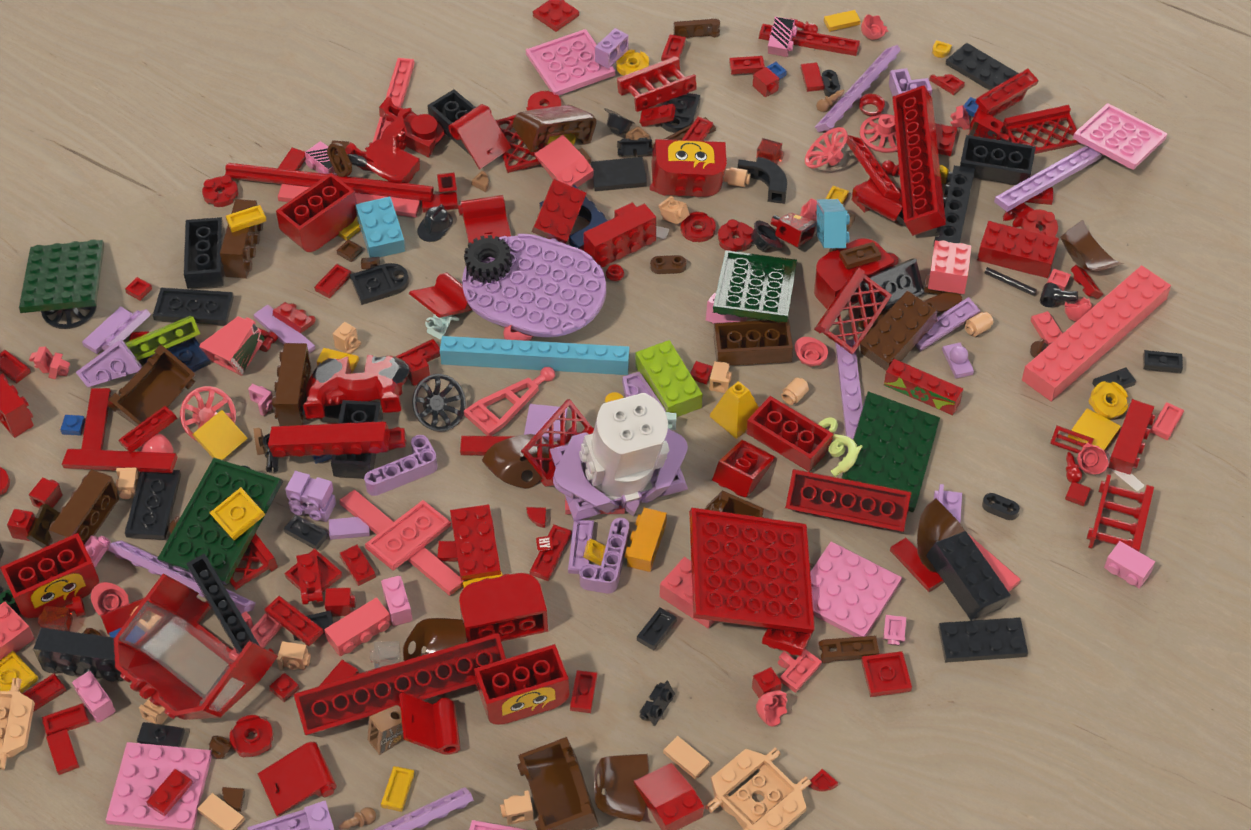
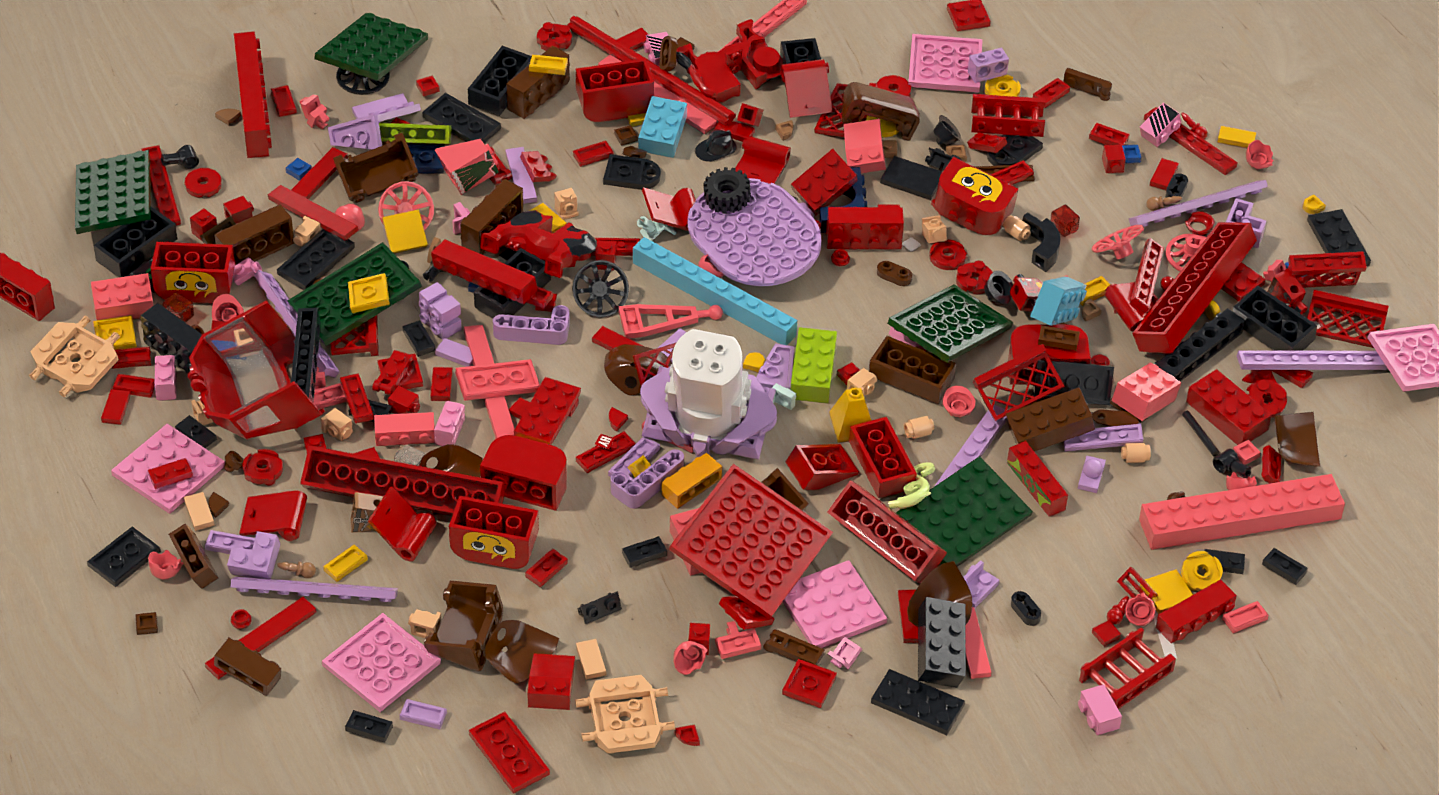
camera: 30 degrees right, 5 degrees down
(77, 606) = (202, 306): red tile -> none
(147, 429) = (350, 197): red tile -> none
(948, 82) = (1293, 237): red tile -> none
(1046, 327) = (1200, 483): coral plate -> none

